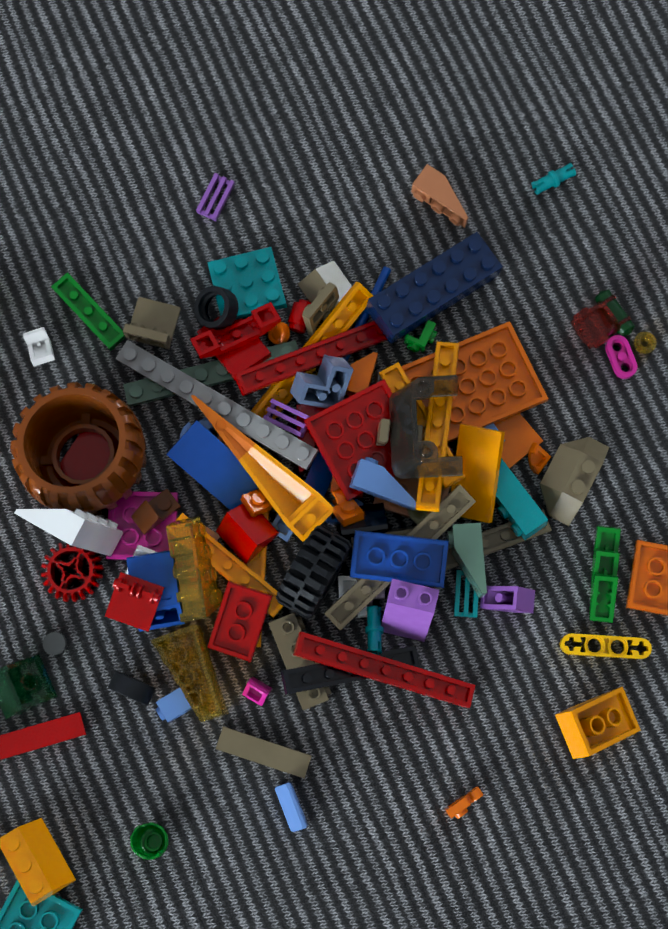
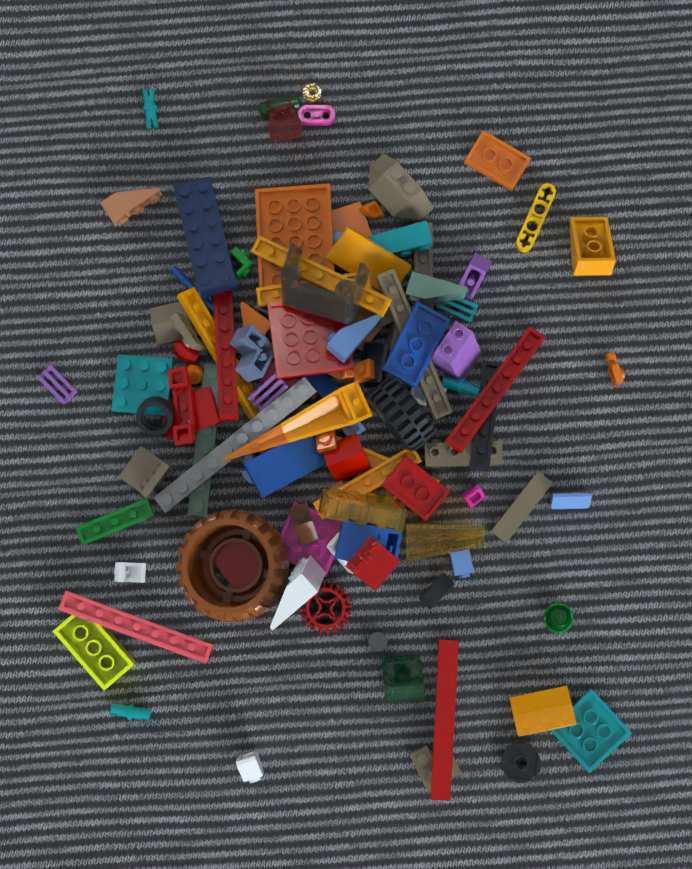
camera: 75 degrees left, 5 degrees up
(383, 432) = (311, 319): dark tan tile -> none
(604, 574) = (481, 196): green slope -> none

